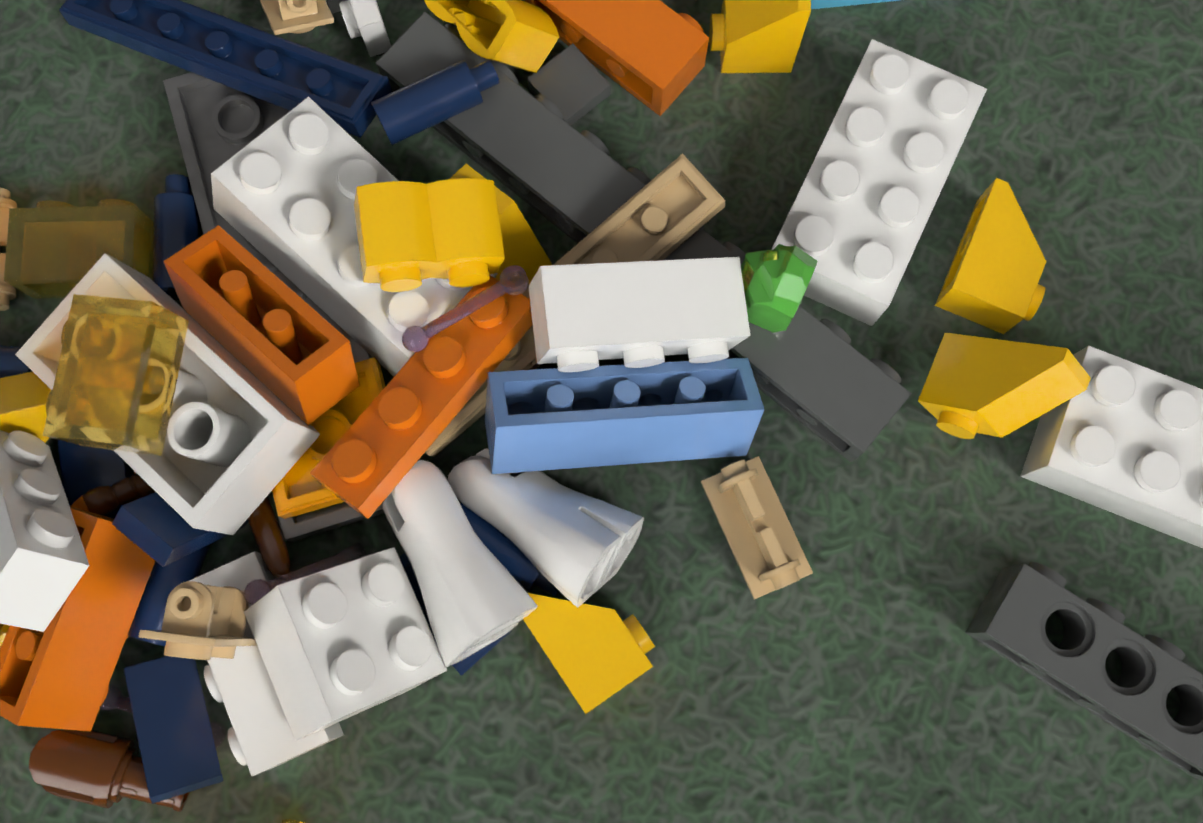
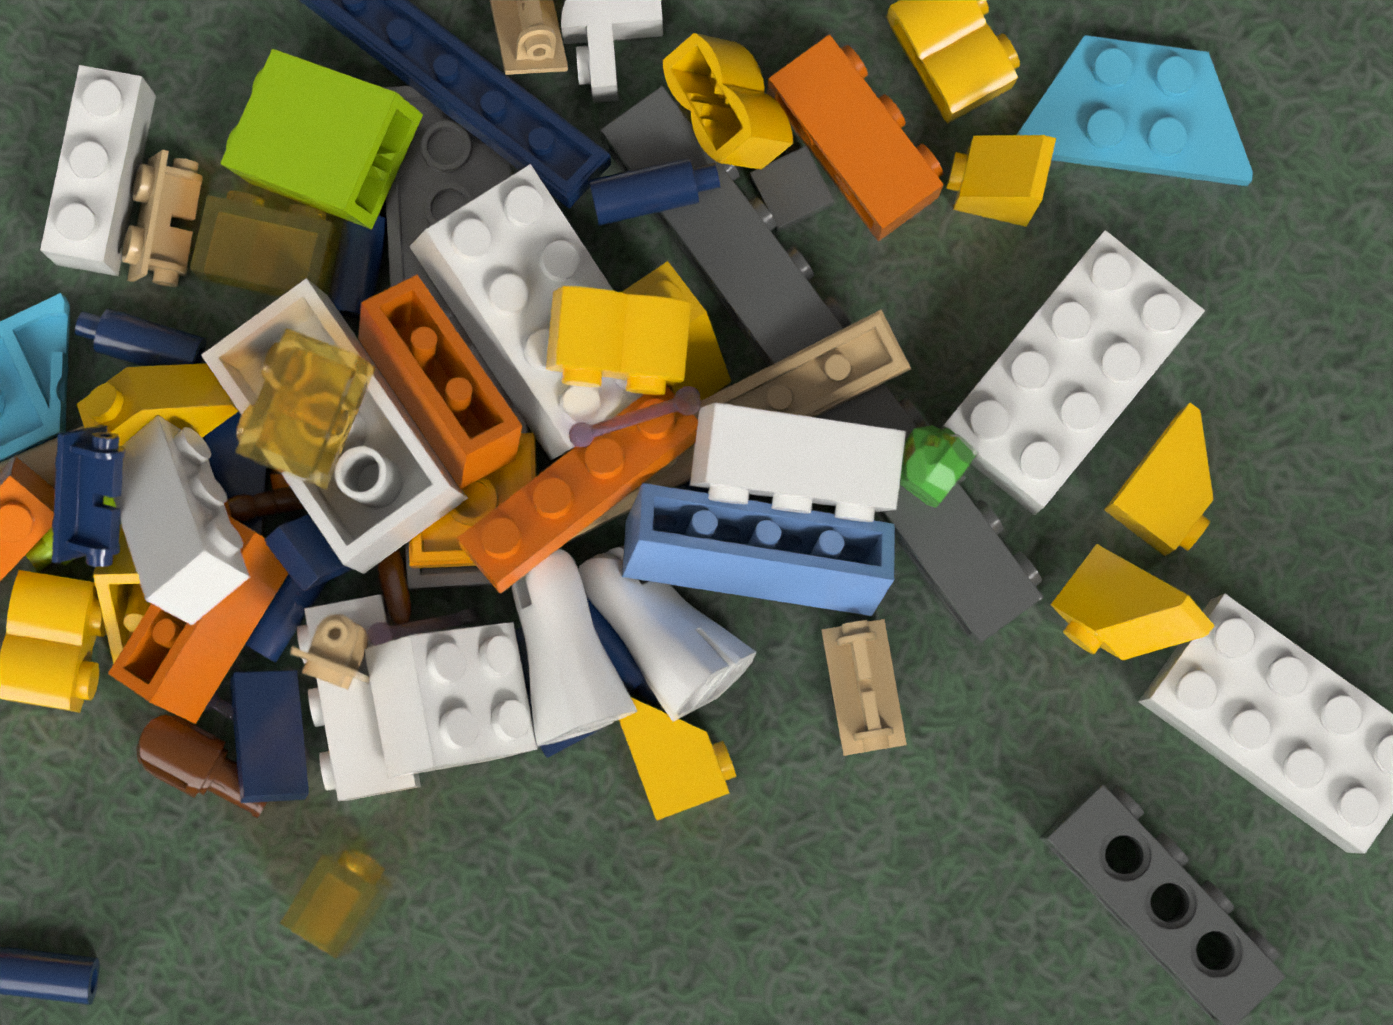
camera: 10 degrees right, 5 degrees up
(113, 131) = (321, 138): none -> lime brick

